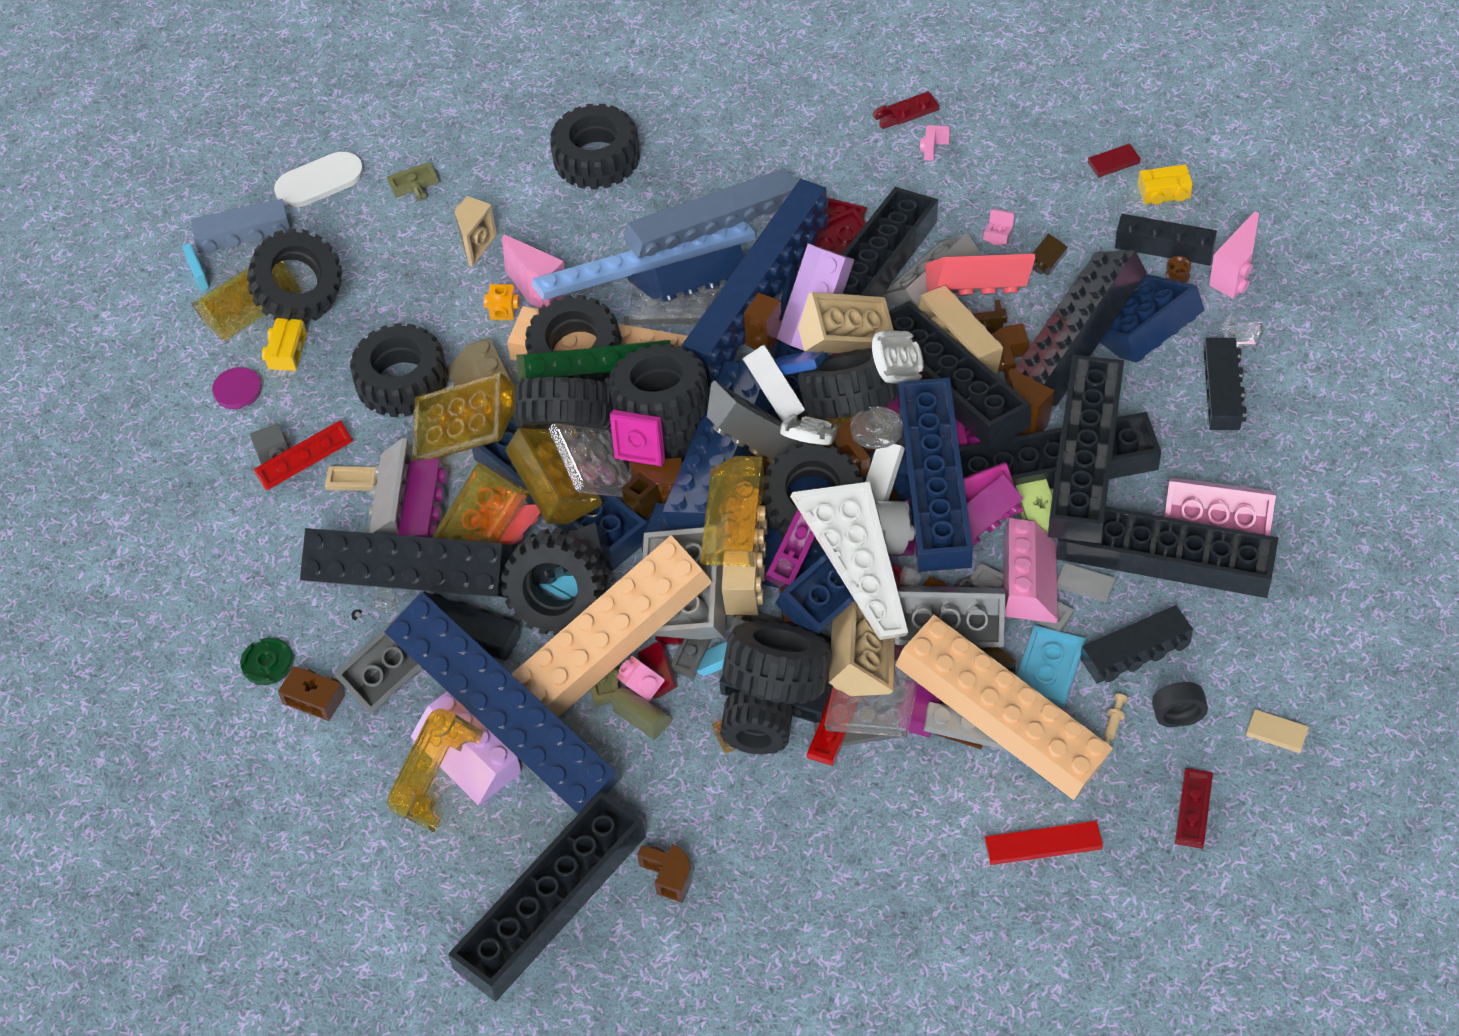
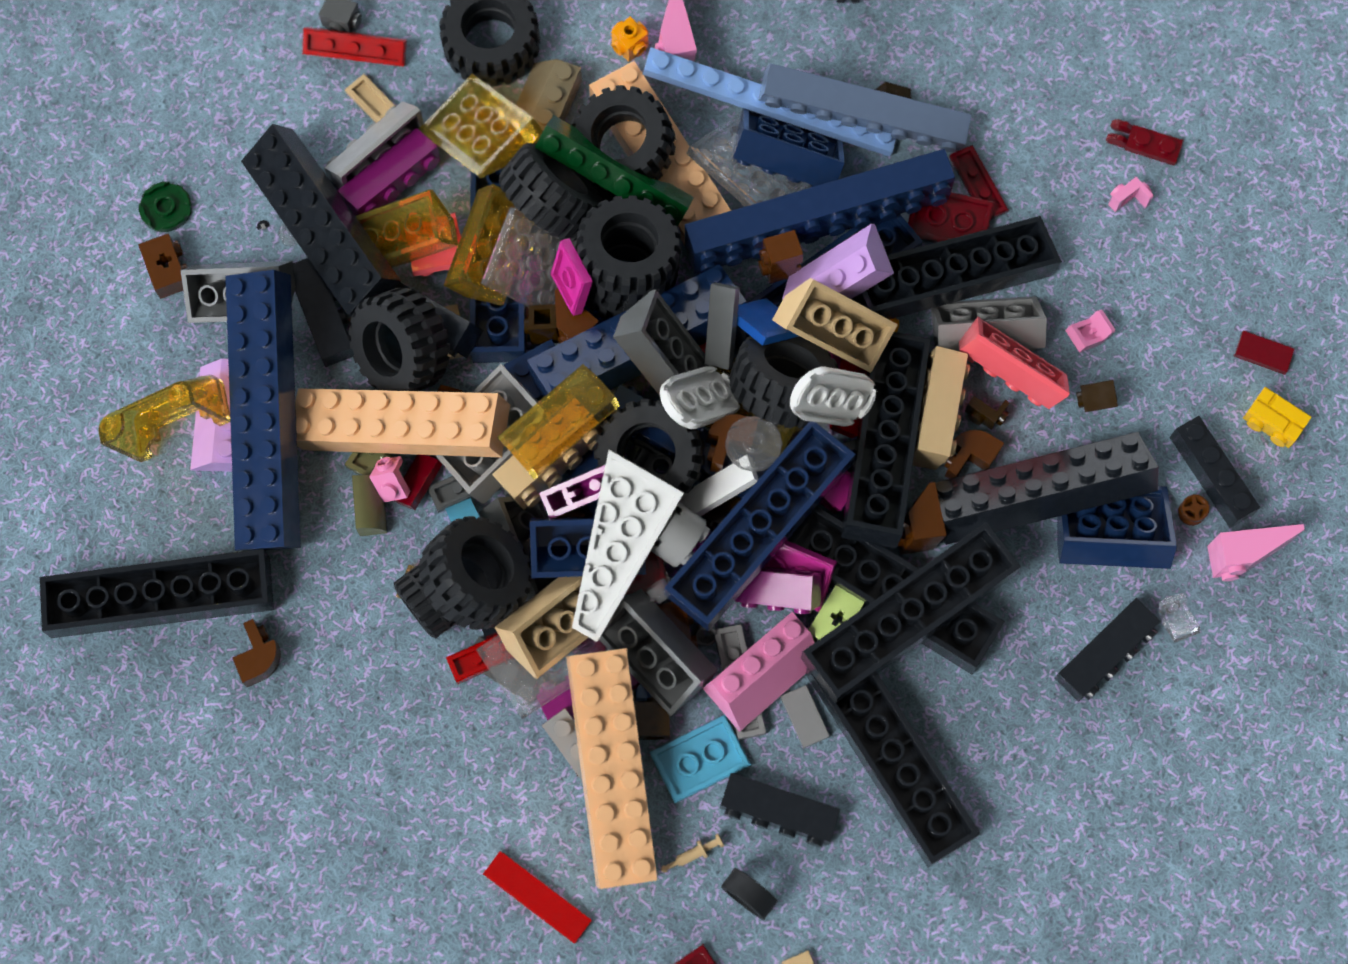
camera: 40 degrees right, 20 degrees up
(1221, 505) = (973, 758): bright pink slope -> none

